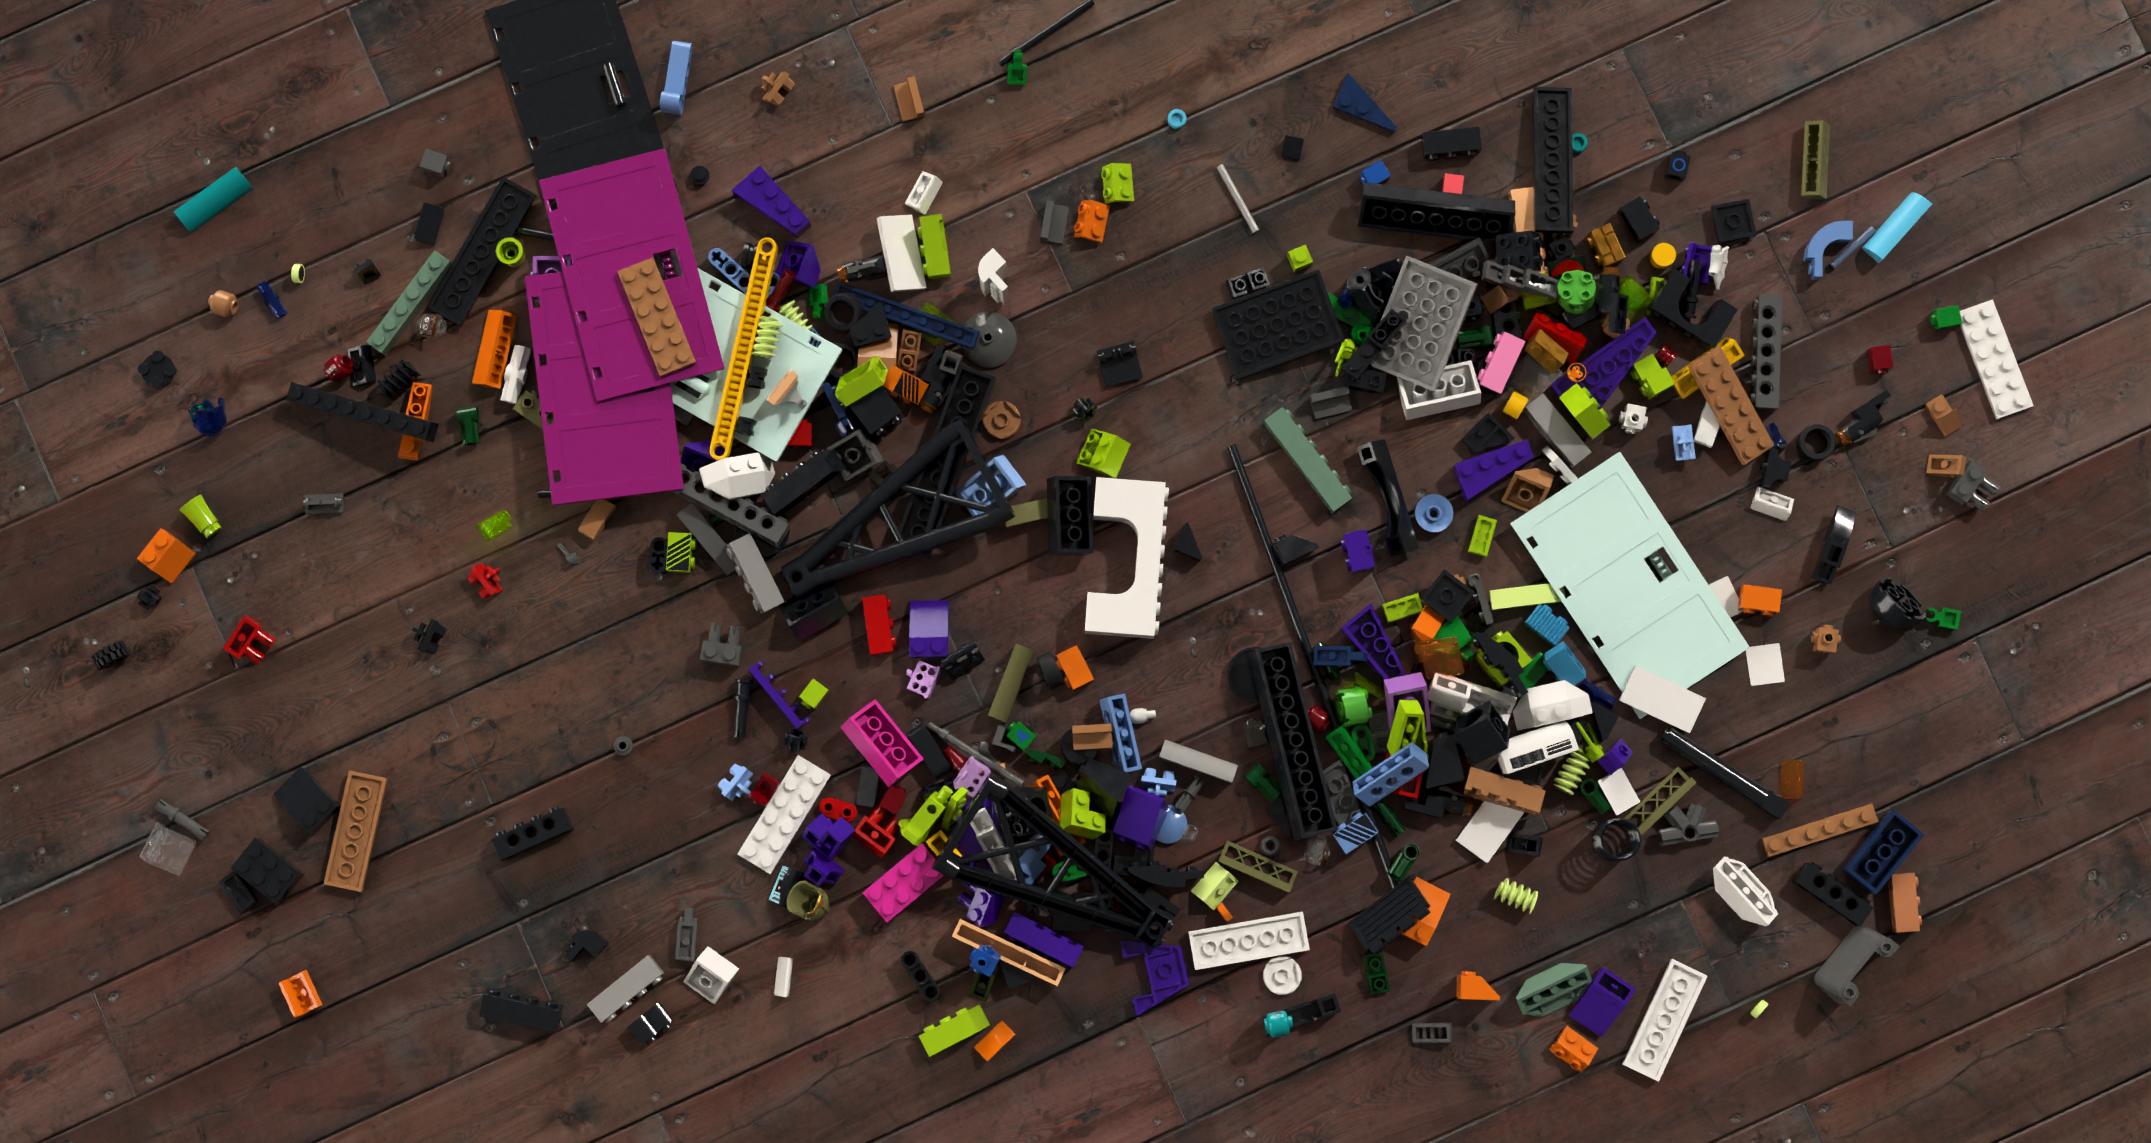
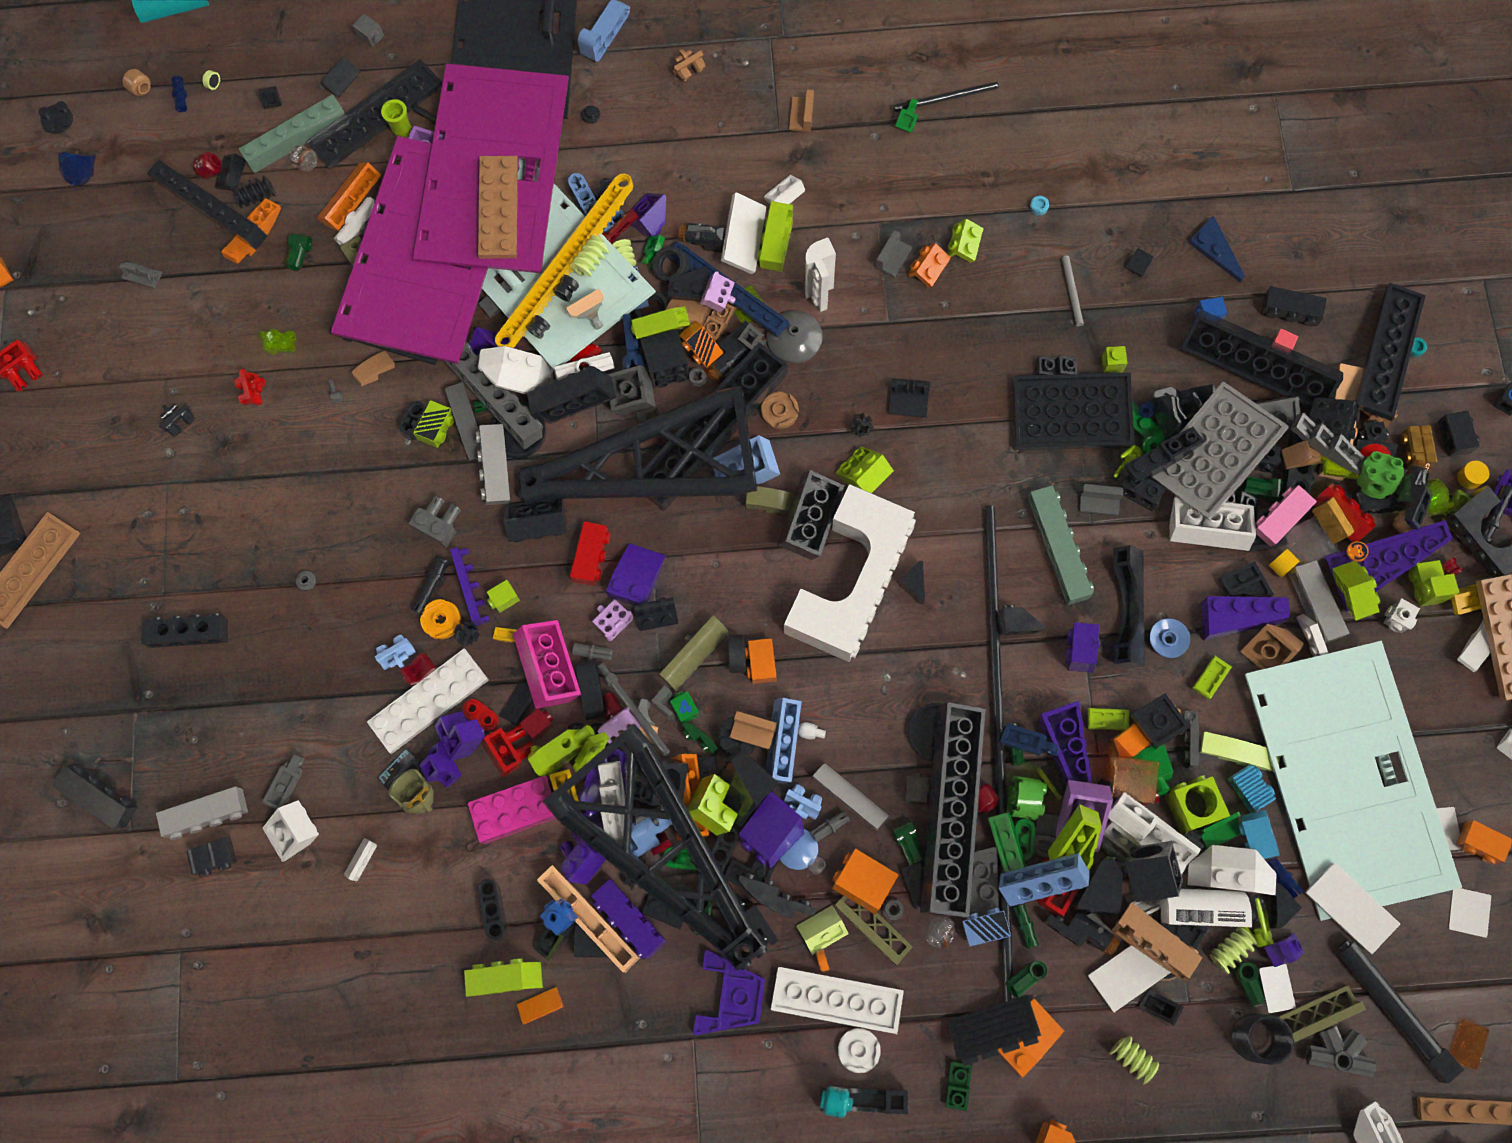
camera: 25 degrees right, 10 degrees down
(201, 516) = (29, 246): lime plant -> none
(587, 939) = (189, 753): black brick -> none
(765, 725) = (430, 614): none -> light orange plate
(766, 196) = (642, 149): dark purple wedge -> none
(814, 442) = (602, 362): none -> white piece
(830, 728) = (504, 634): none -> yellow piece
(896, 327) = (718, 292): none -> lavender piece
(906, 417) = (703, 377): none -> dark grey bush
(917, 715) = (592, 651): none -> dark grey axle
(1236, 831) = (864, 881): none -> orange brick
(1497, 655) = (1196, 795): black slope -> none
(1683, 442) = (1446, 657): light blue hips -> none

